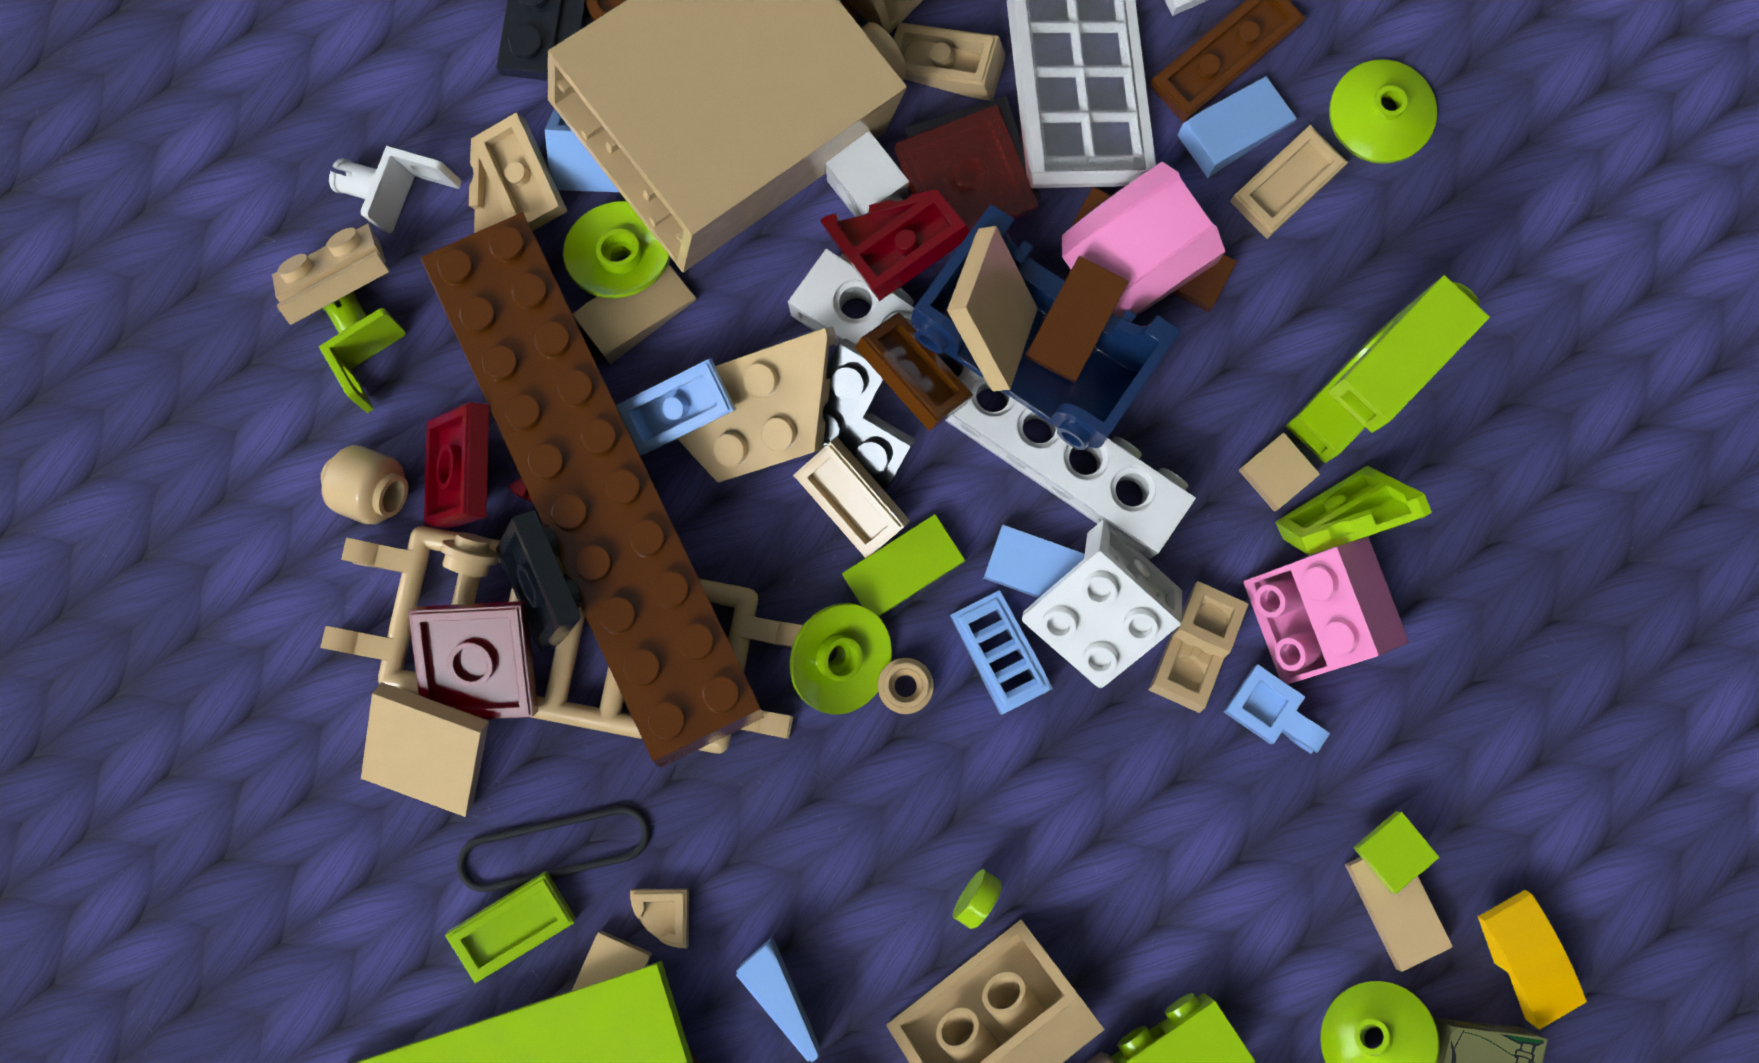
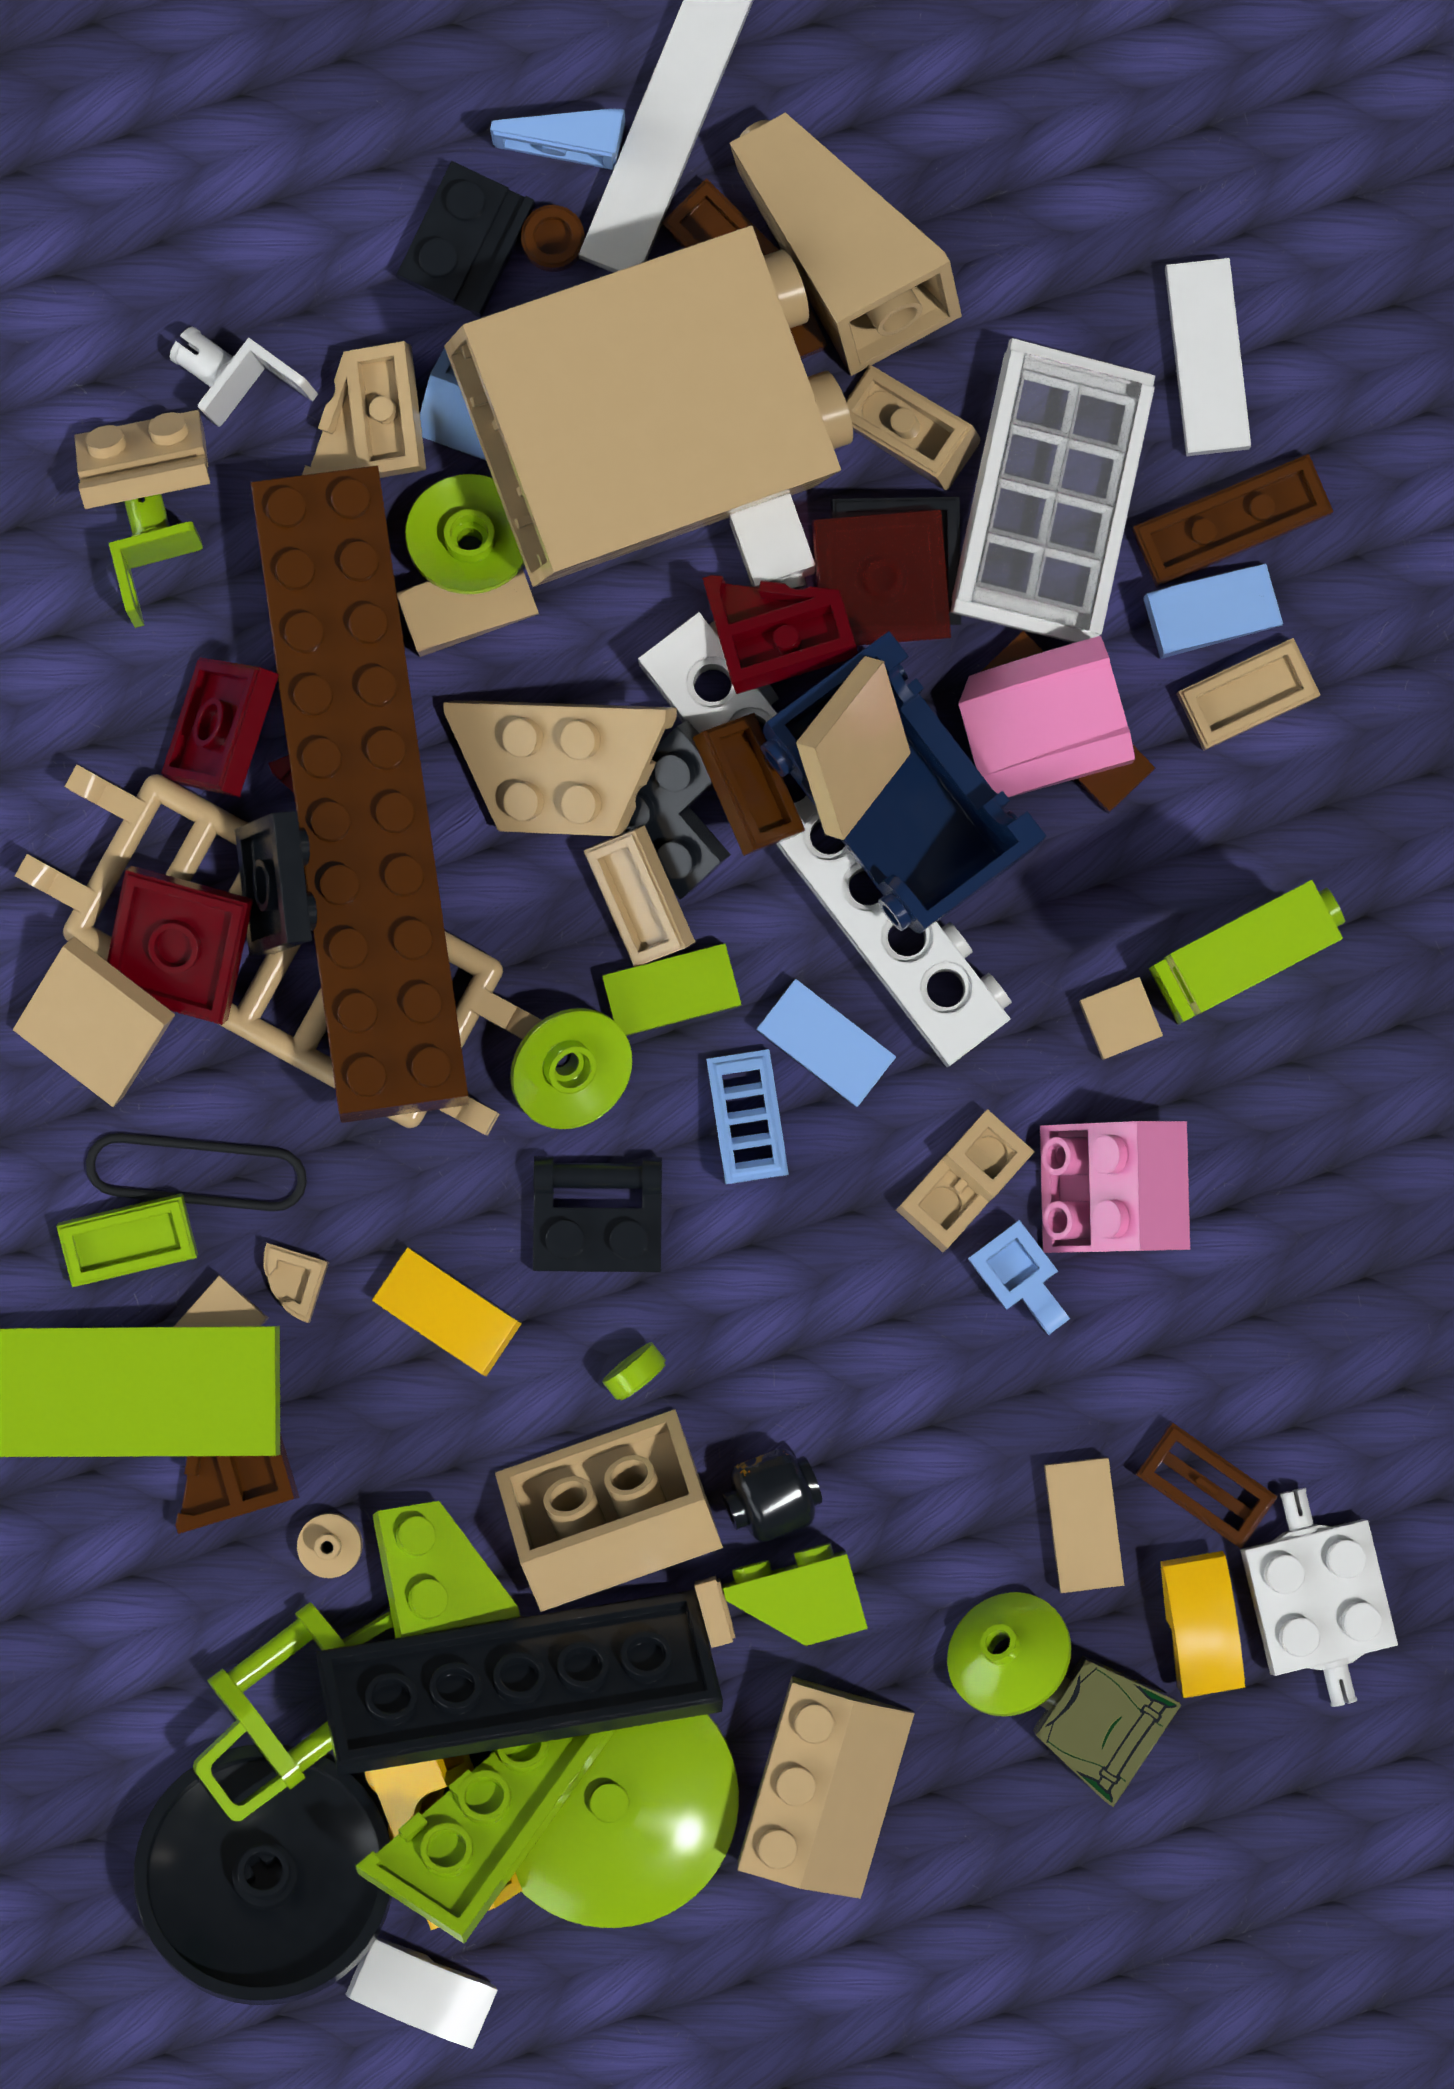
camera: 20 degrees right, 5 degrees up
(364, 485) = (110, 709): tan head -> none
(468, 555) = (205, 828): tan plate -> none
(675, 407) = (478, 737): light blue slope -> none
(772, 987) = (387, 1391): light blue slope -> none
(801, 900) = (446, 1312): none -> yellow slope
(906, 794) = (597, 1236): none -> black plate
(911, 668) = (632, 1099): tan plate -> none
(1076, 319) = (945, 783): reddish brown tile -> none
(1107, 608) = (877, 1105): white bracket -> none
(1130, 968) = (772, 1495): none -> black head
(1352, 510) = (1176, 1088): lime wing -> none
(1367, 126) = (1363, 668): lime dish -> none
(1396, 852) = (1096, 1465): lime tile -> none
(1440, 824) = (1161, 1453): none -> reddish brown tile
(1617, 902) = (1319, 1597): none -> white plate

